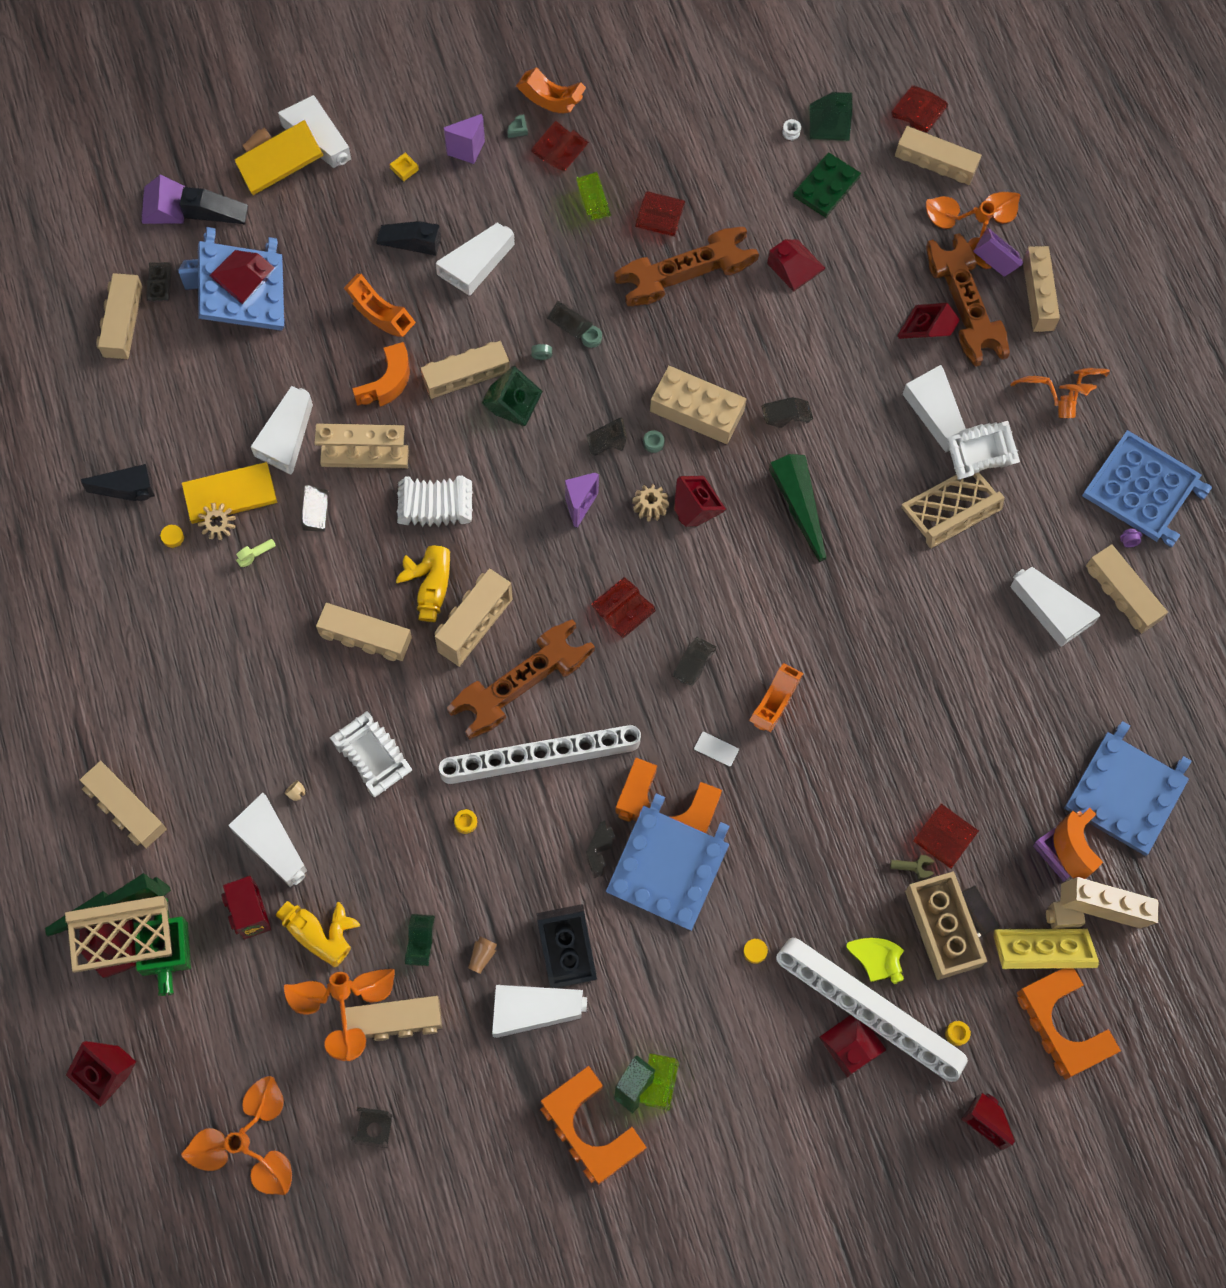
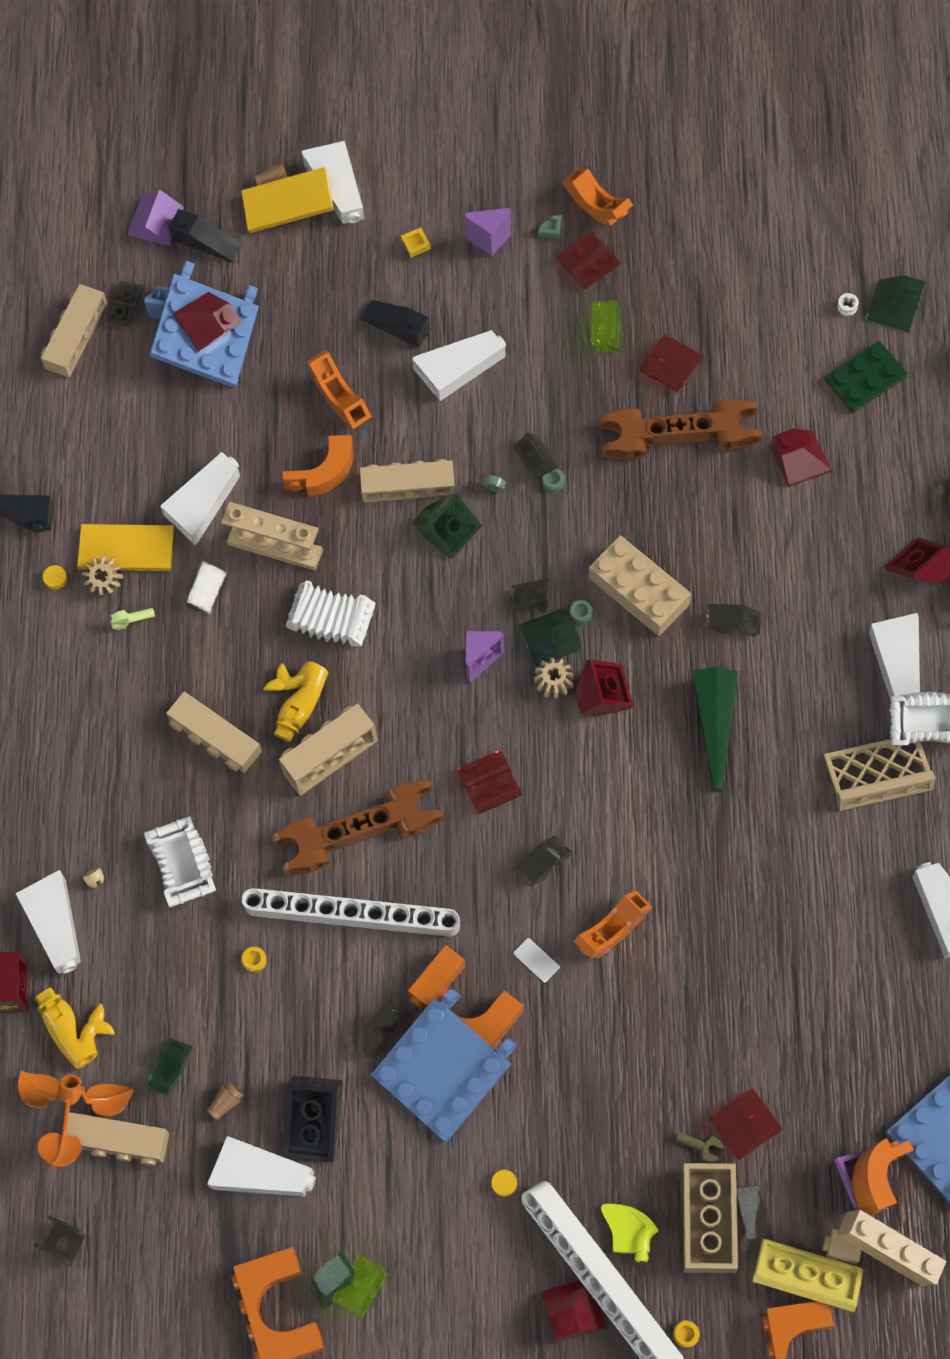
camera: 25 degrees right, 0 degrees up
(635, 468) = (550, 636): none -> clear green slope

